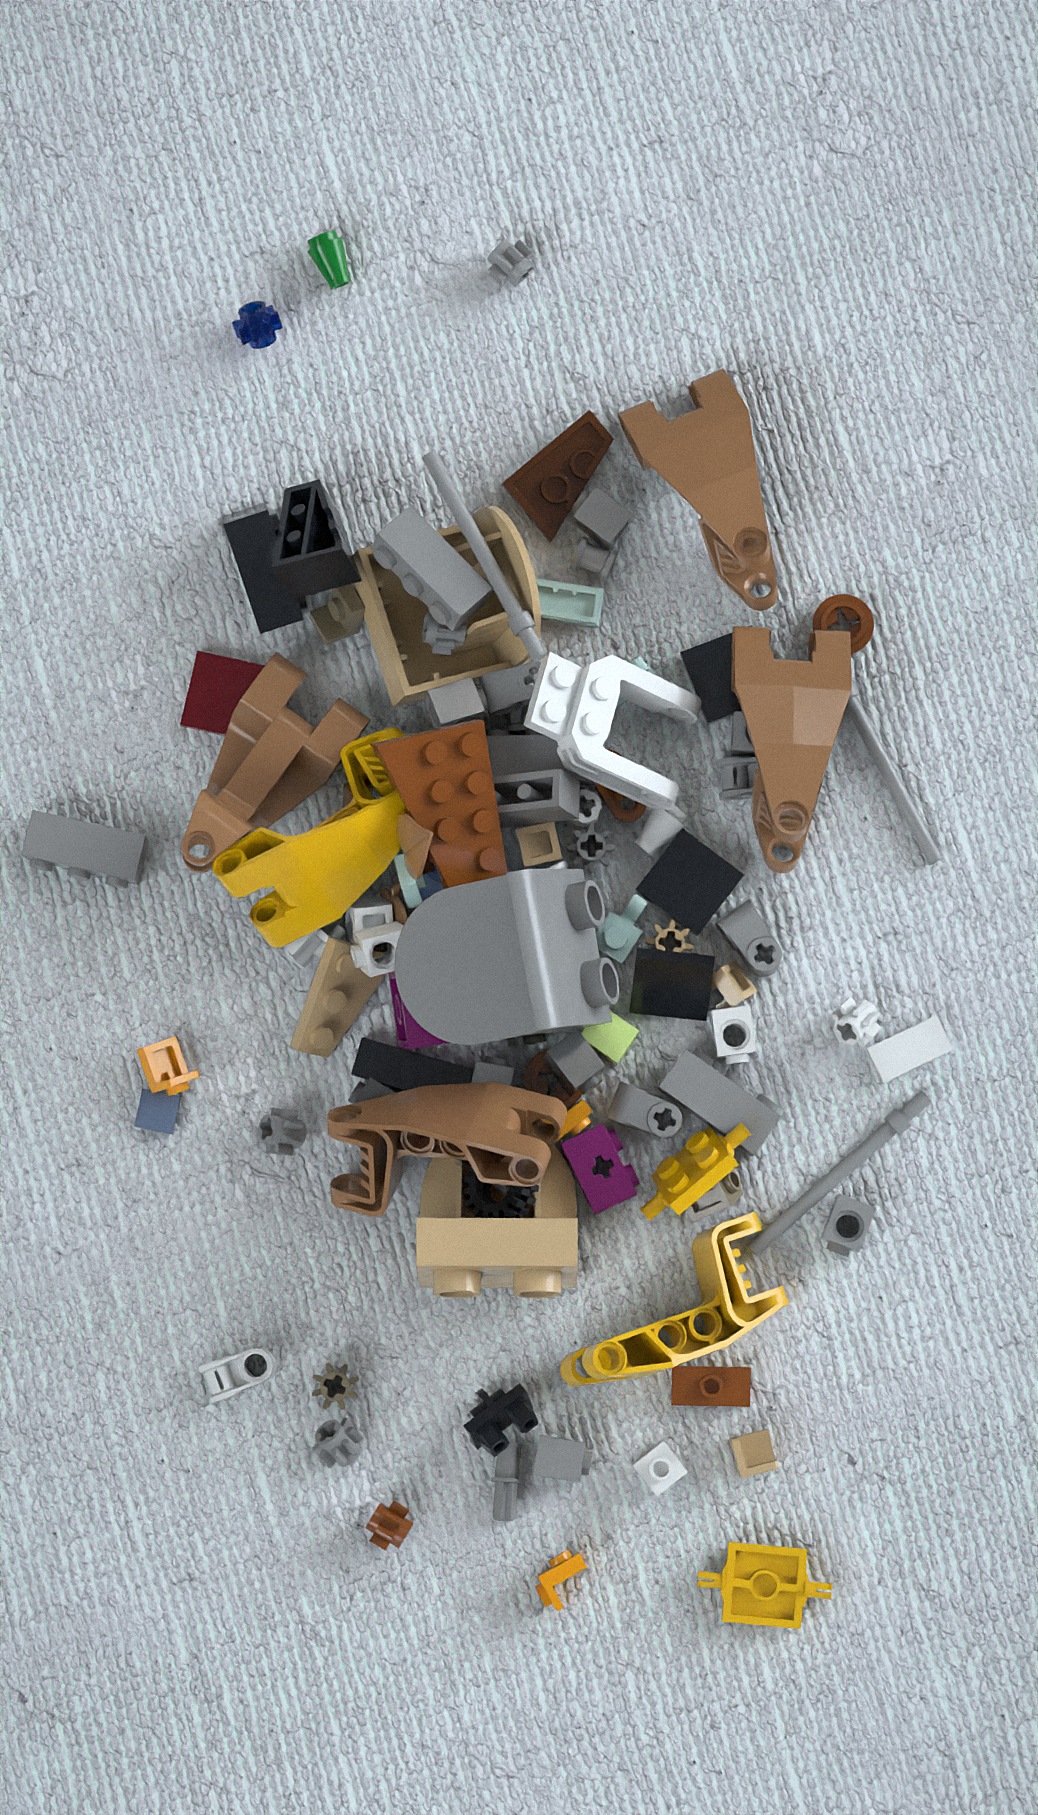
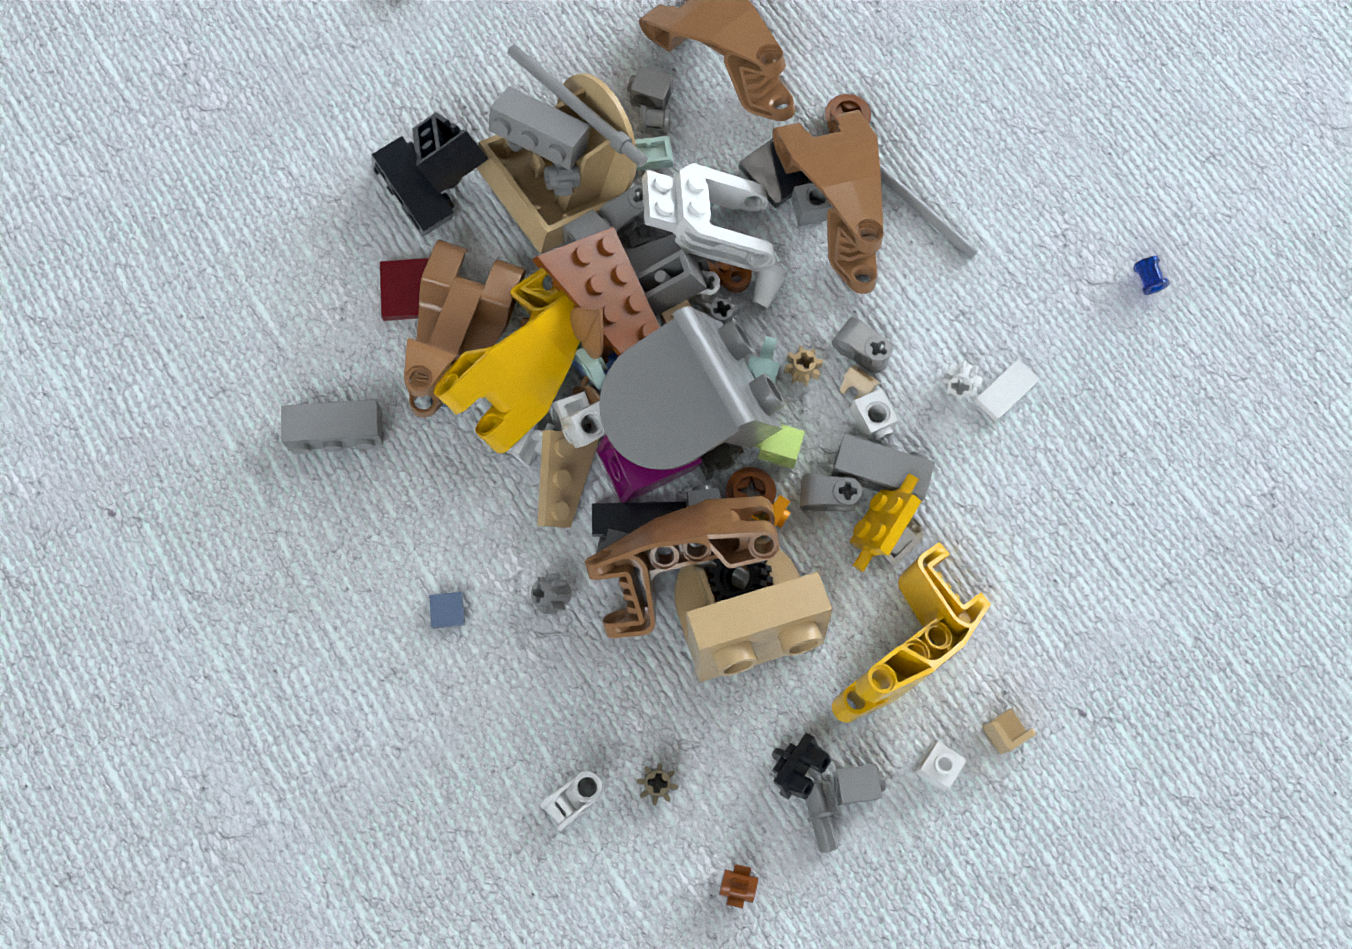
camera: 25 degrees left, 10 degrees down
(165, 1067) = (443, 572): light orange bracket -> none
(257, 324) = (359, 30): clear blue gear -> none
(337, 1443) = (674, 830): light grey gear -> none
(341, 615) = (483, 202): dark tan bracket -> none
(558, 473) = (615, 59): reddish brown wing -> none
(562, 1567) = (890, 875): light orange bracket -> none
(574, 1064) = (764, 470): dark grey brick -> none
(581, 1155) = (805, 529): magenta brick -> none
(672, 984) = (817, 391): black tile -> none
(689, 882) = (802, 318): black tile -> none
(710, 1386) = (953, 689): dark orange plate -> none
(745, 771) = (812, 234): light grey piece -> none
(764, 1585) = (1056, 835): yellow plate -> none
(860, 1212) = (1018, 518): light grey brick -> none
(896, 1123) = (1017, 447): light grey bar -> none

